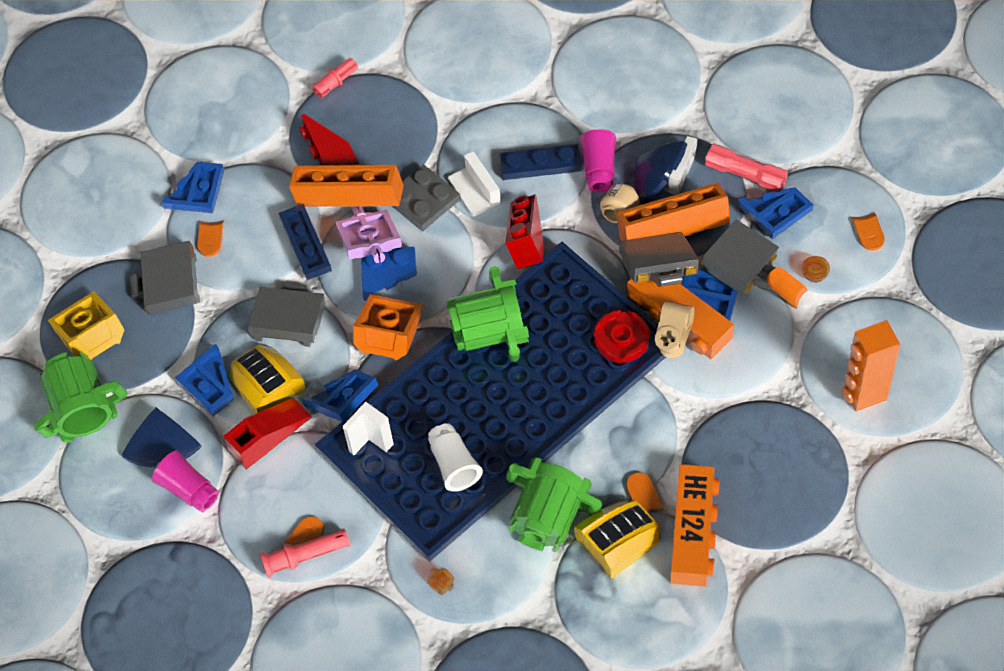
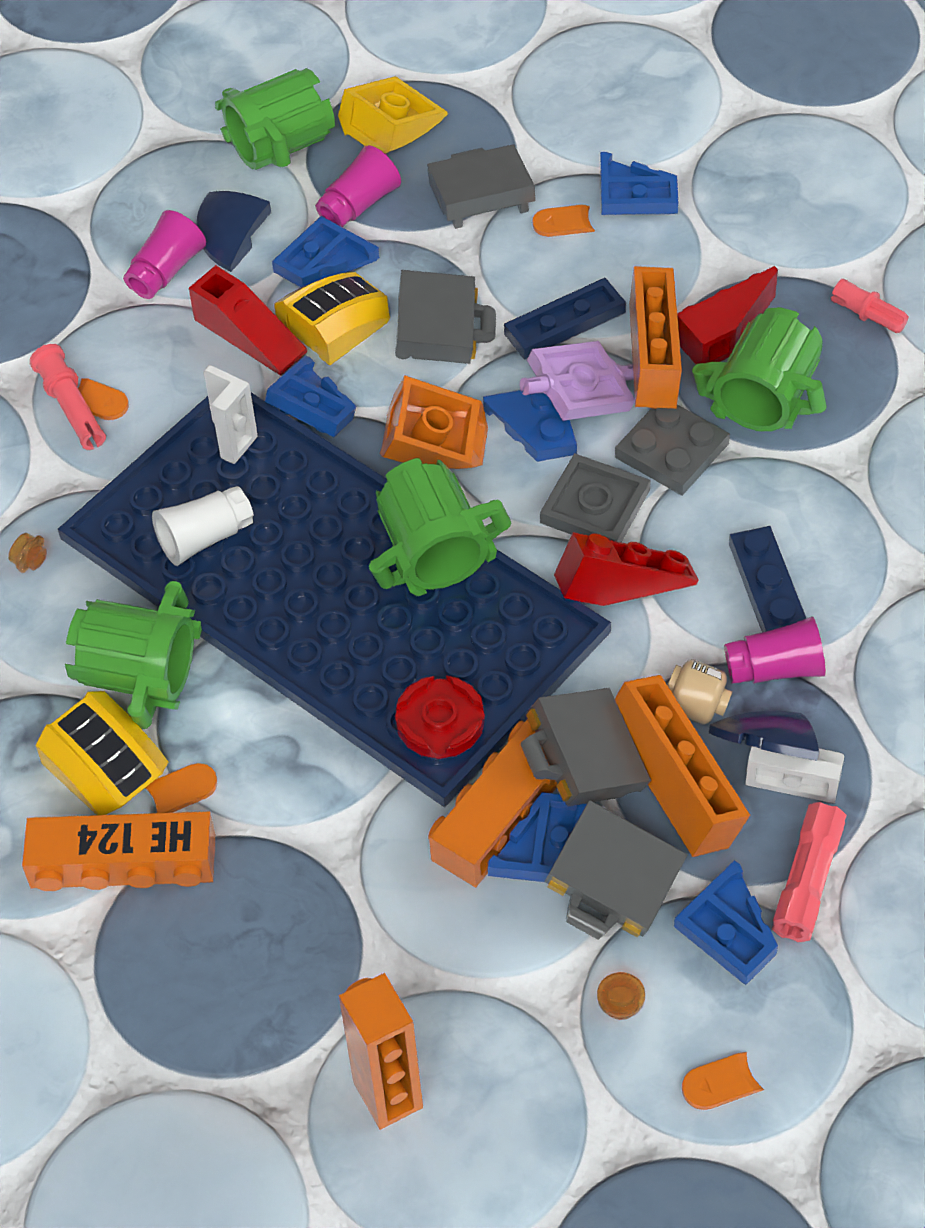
camera: 80 degrees right, 5 degrees down
(153, 351) = (359, 186): none -> dark pink plant
(390, 129) = (766, 374): none -> bright green container
(463, 241) = (594, 499): none -> dark grey plate
(475, 186) = (704, 505): white panel -> none
(674, 324) = (449, 776): tan piece -> none
(786, 286) = (575, 950): orange piece -> none

